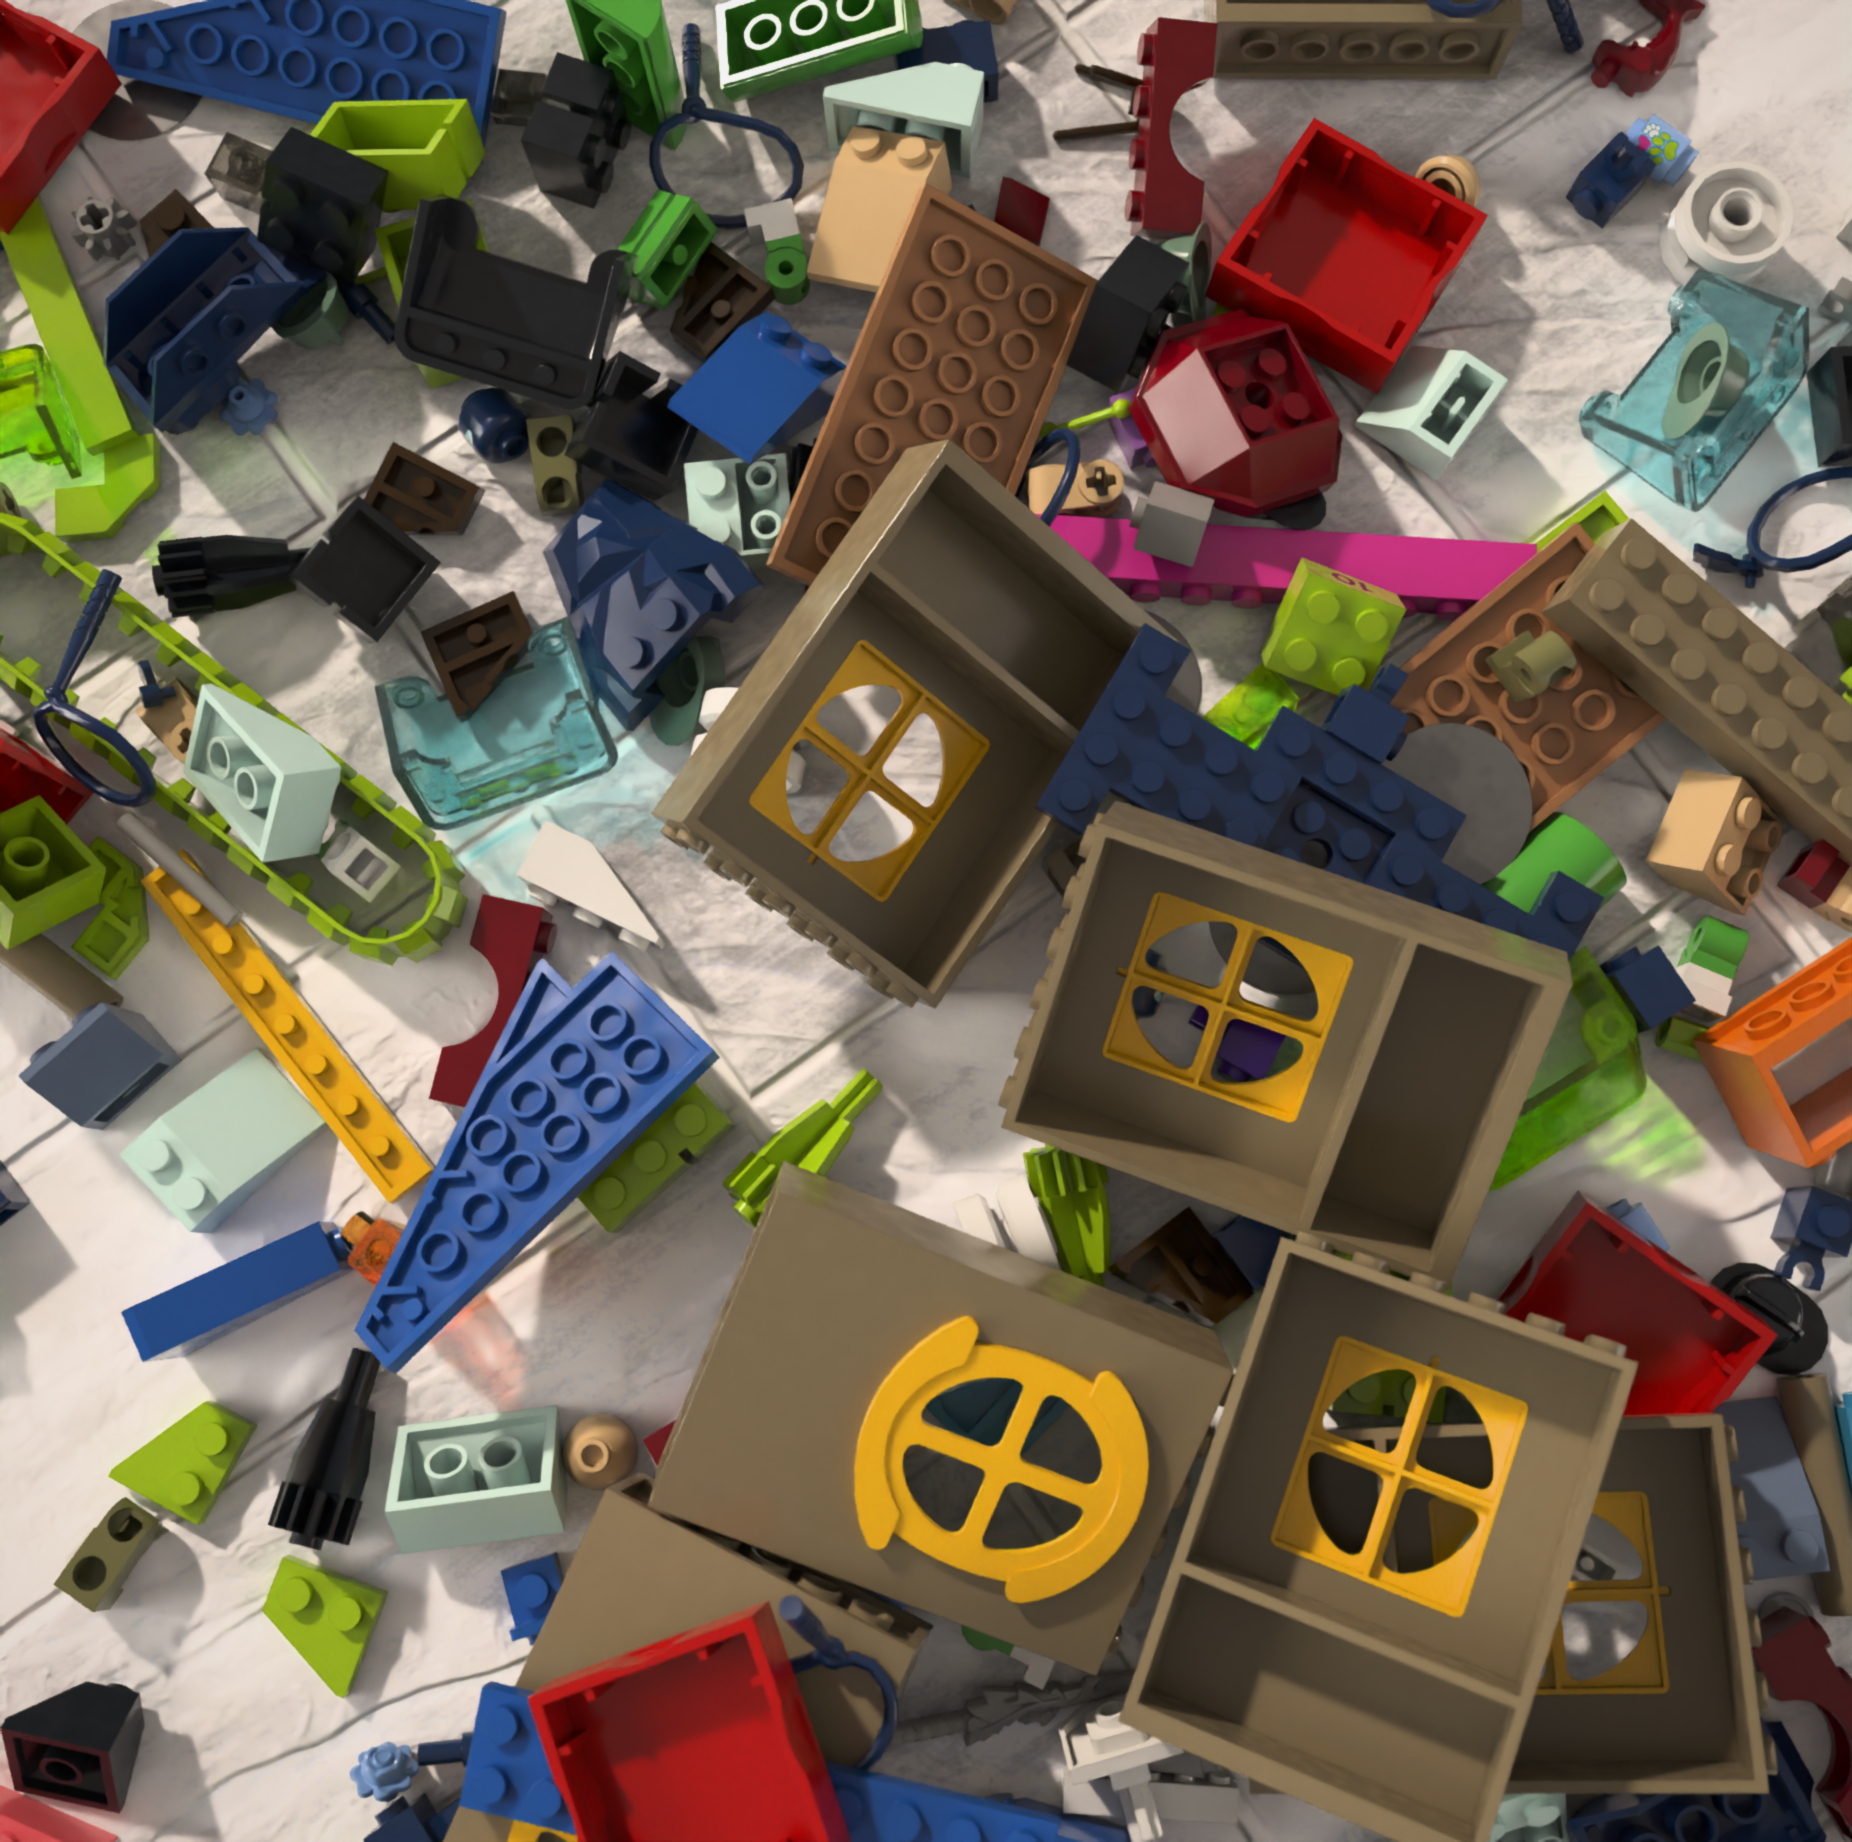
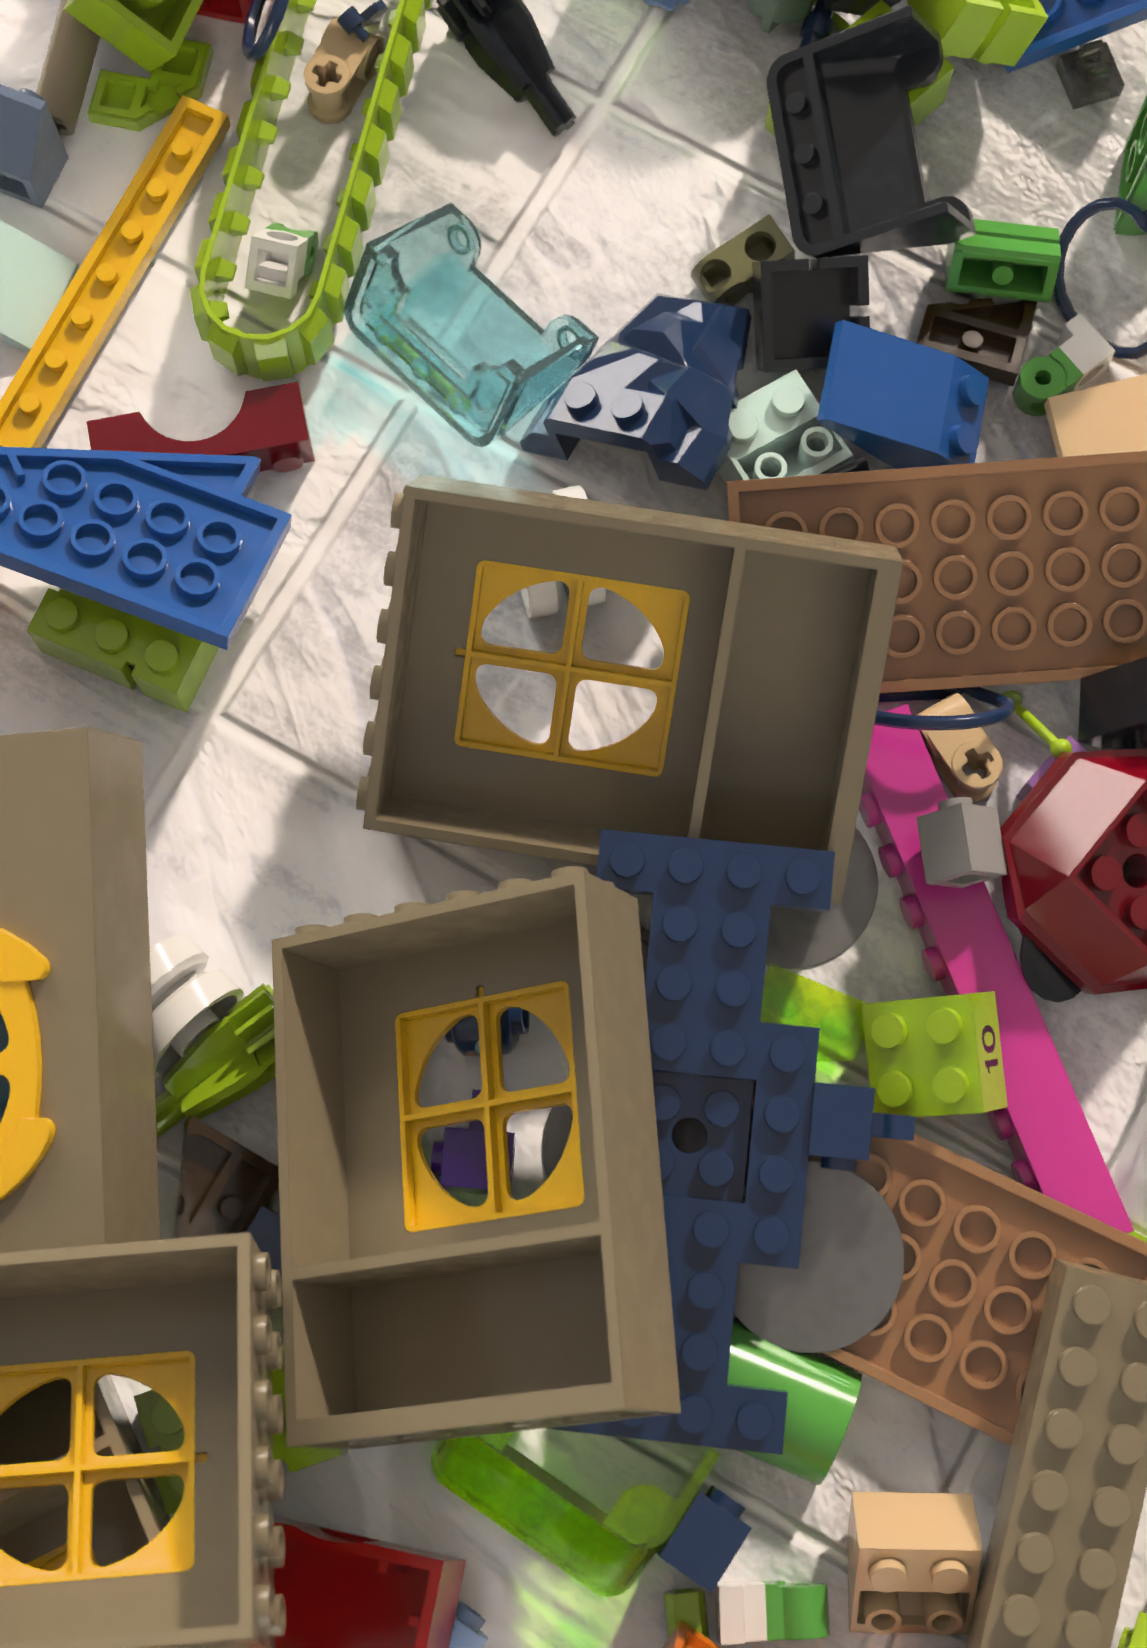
camera: 60 degrees right, 5 degrees down
(179, 869) = (205, 120): light grey bar -> none
(261, 775) = (312, 140): light aqua slope -> none
(364, 569) = (557, 142): black piece -> none
(422, 495) = (652, 160): dark brown wing -> none
(478, 651) = (531, 279): dark brown wing -> none
(493, 424) = (752, 192): dark blue head -> none
(577, 147) = (1057, 147): black piece -> none
(577, 874) = (357, 471): white slope -> none
(684, 684) = (601, 469): sand green piece -> none
(808, 1141) = (193, 783): lime piece -> none
(1531, 665) = (988, 1265): olive leg -> none

